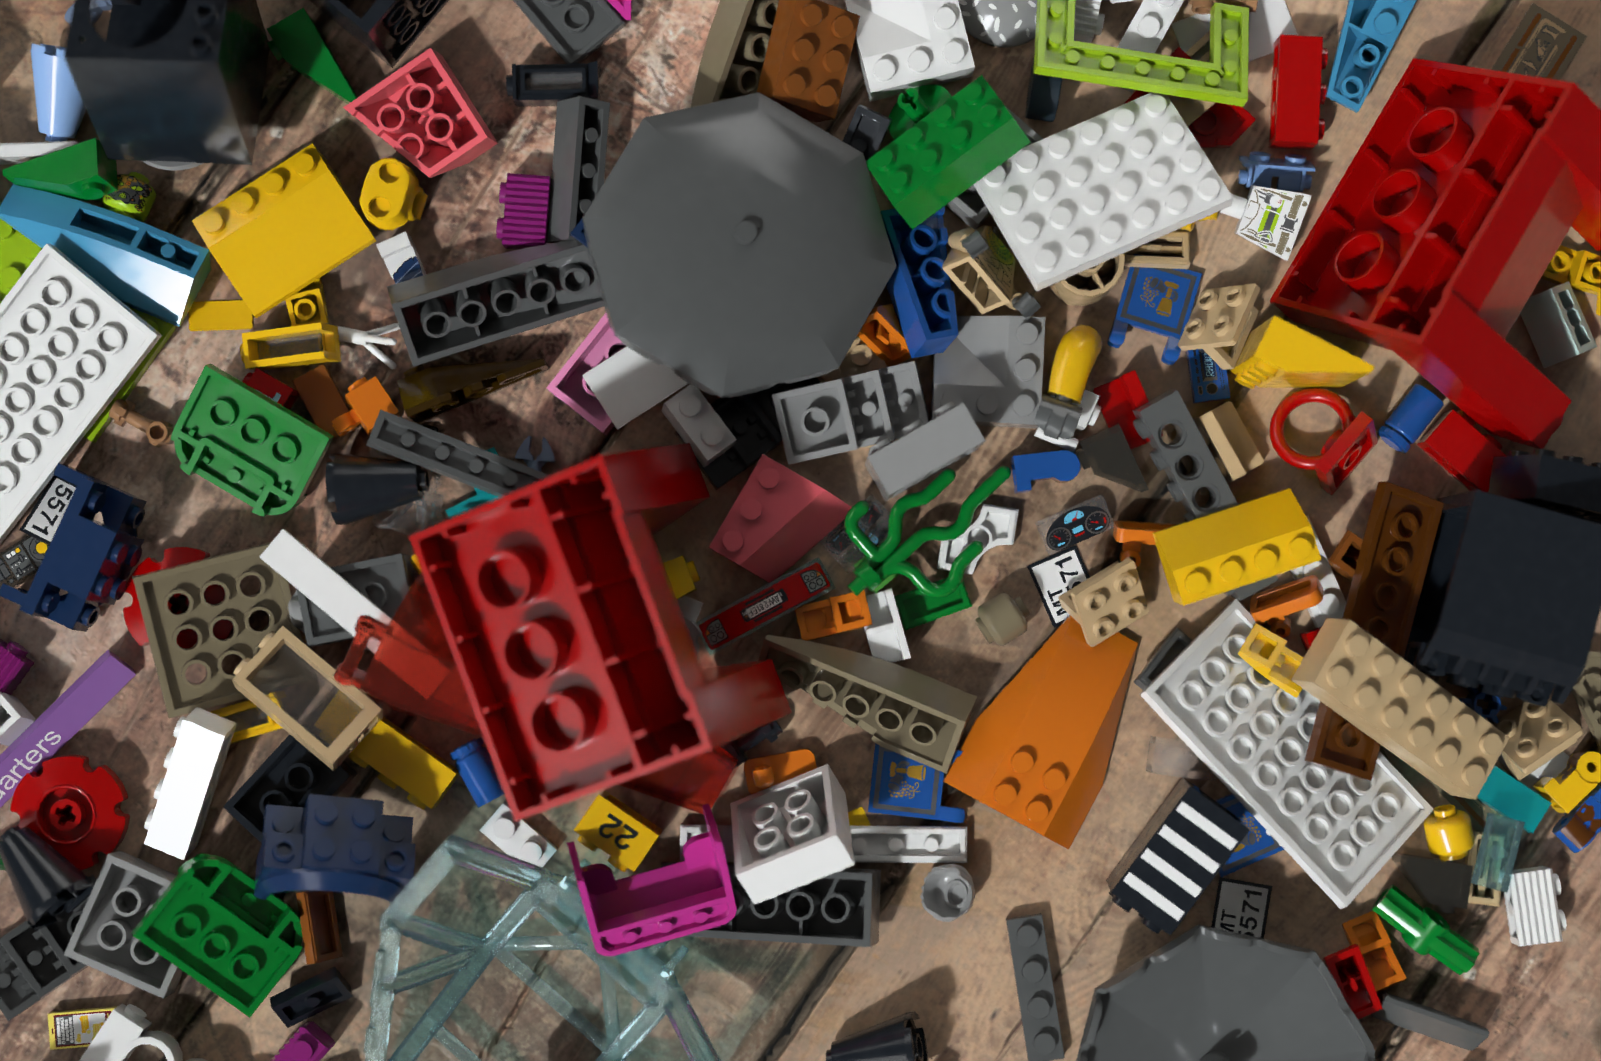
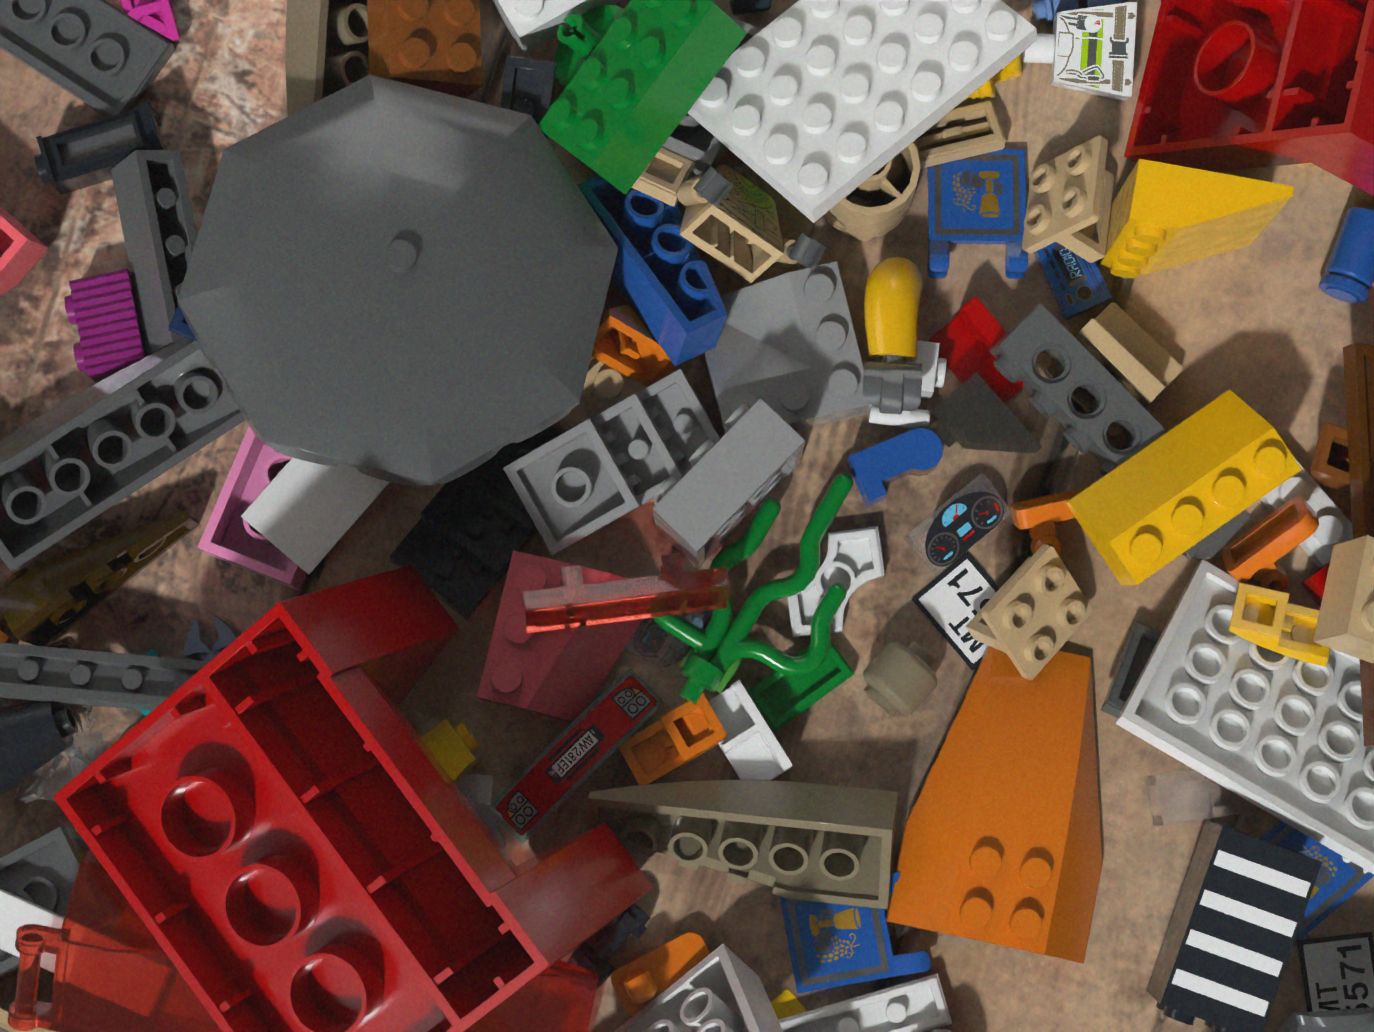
camera: 15 degrees left, 5 degrees down
(698, 424) = (417, 537): white brick -> none
(829, 511) = (625, 599): none -> clear red hinge
(944, 223) = (664, 176): none -> tan tile
(1341, 451) = (1281, 320): red tile -> none

